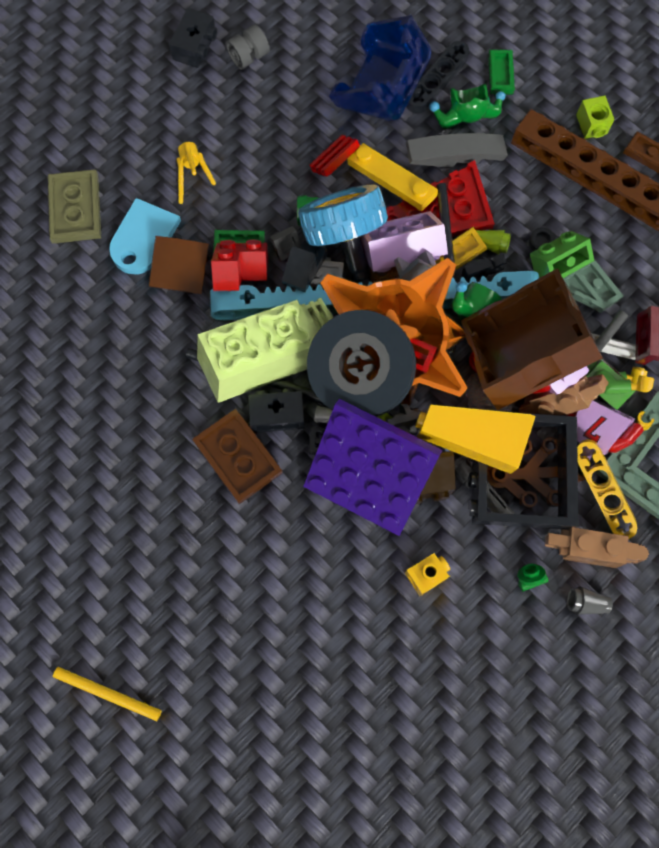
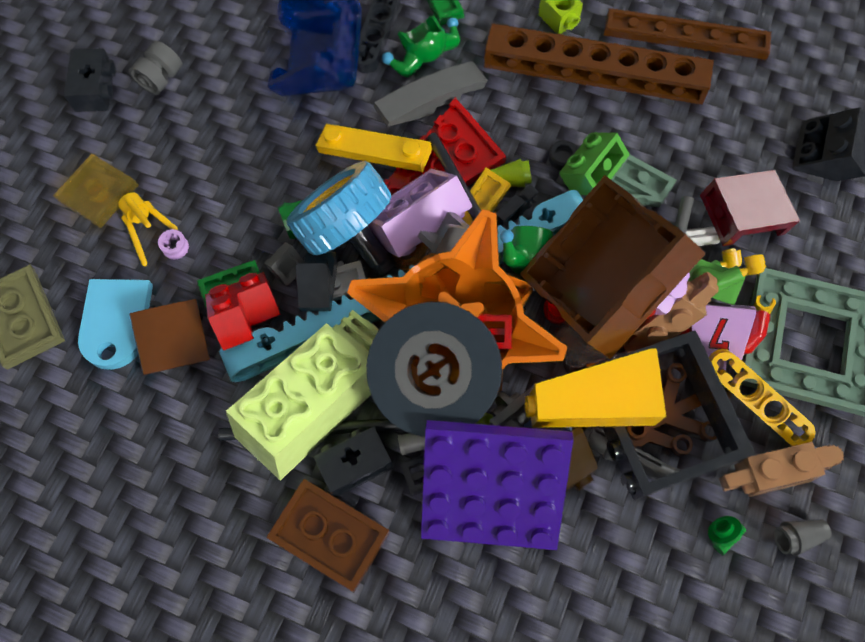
camera: 20 degrees left, 5 degrees down
(165, 129) = (95, 190): none -> clear yellow plate
(213, 198) = (165, 243): none -> lavender bush
(334, 155) = (300, 148): red tile -> none
(424, 583) = (599, 588): yellow brick -> none

